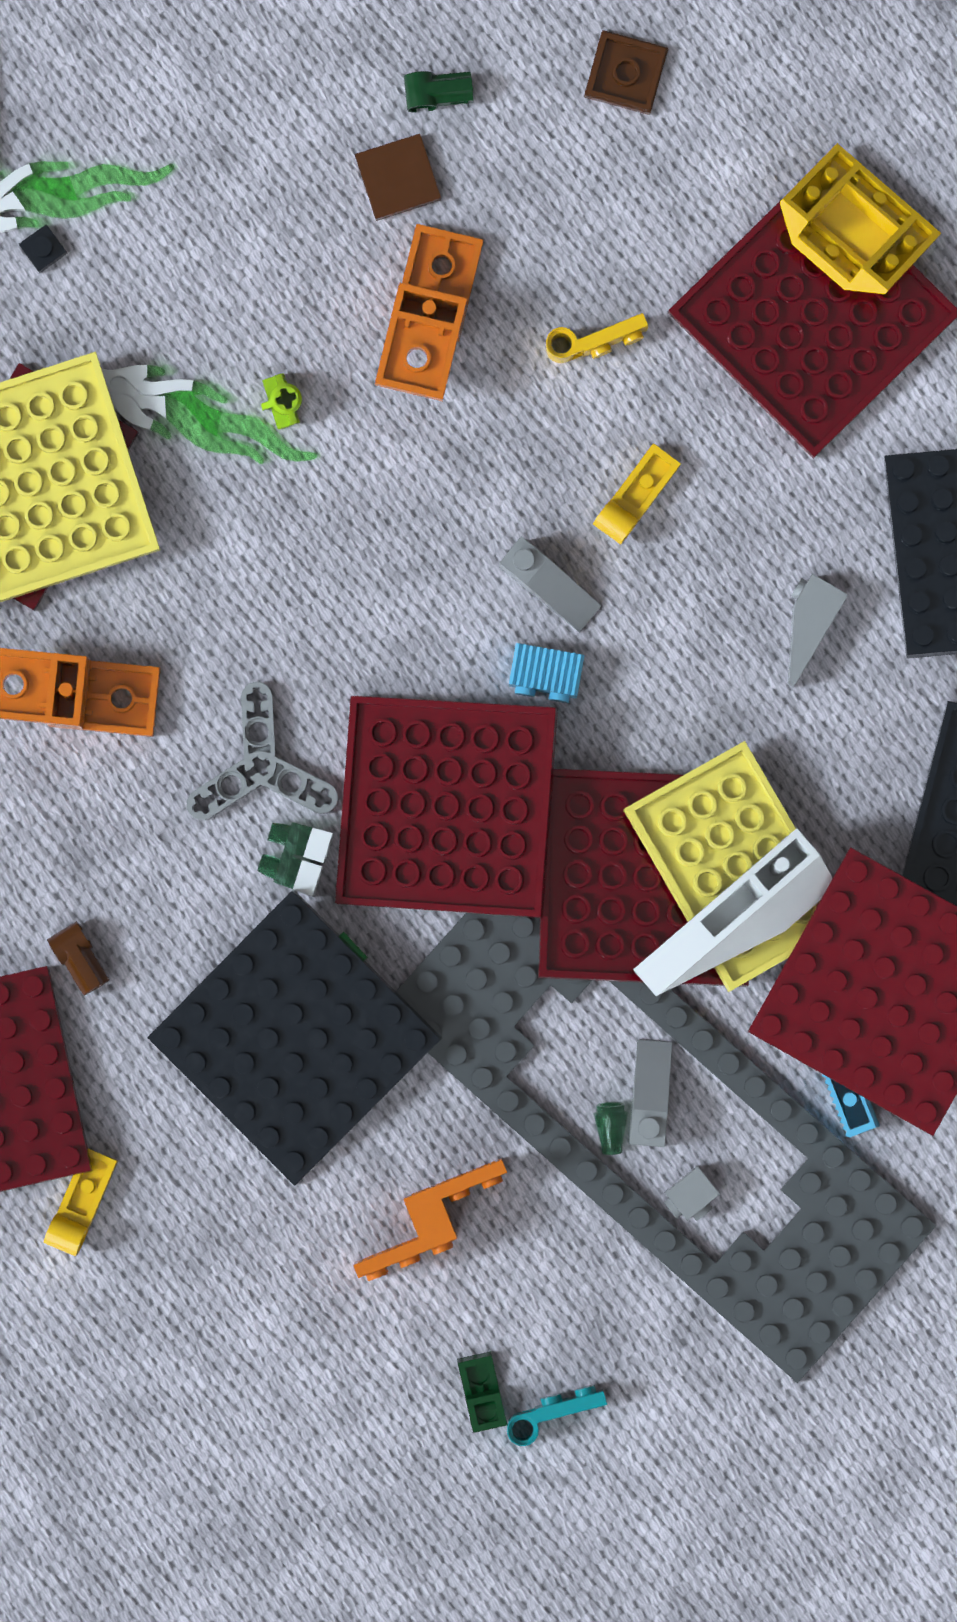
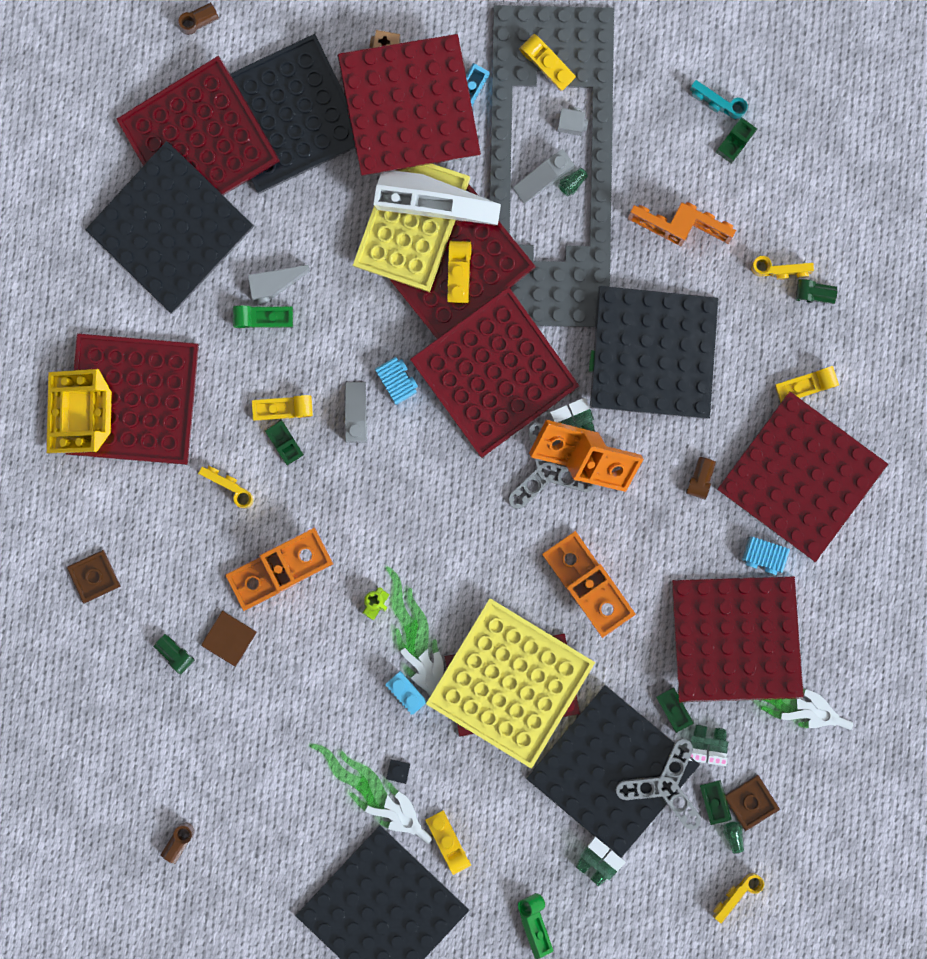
camera: 130 degrees left, 0 degrees up
(132, 341) = (406, 693): none -> medium azure brick
(196, 1315) = (811, 291): none -> dark green piece
(235, 829) = (586, 455): none -> orange bracket
(255, 1299) = (782, 271): none -> yellow plate
(590, 460) = (284, 442): none -> dark green slope
(617, 870) = (459, 271): none -> yellow plate
(778, 569) = (262, 317): none -> green plate
(797, 1227) = (547, 61): none -> yellow plate

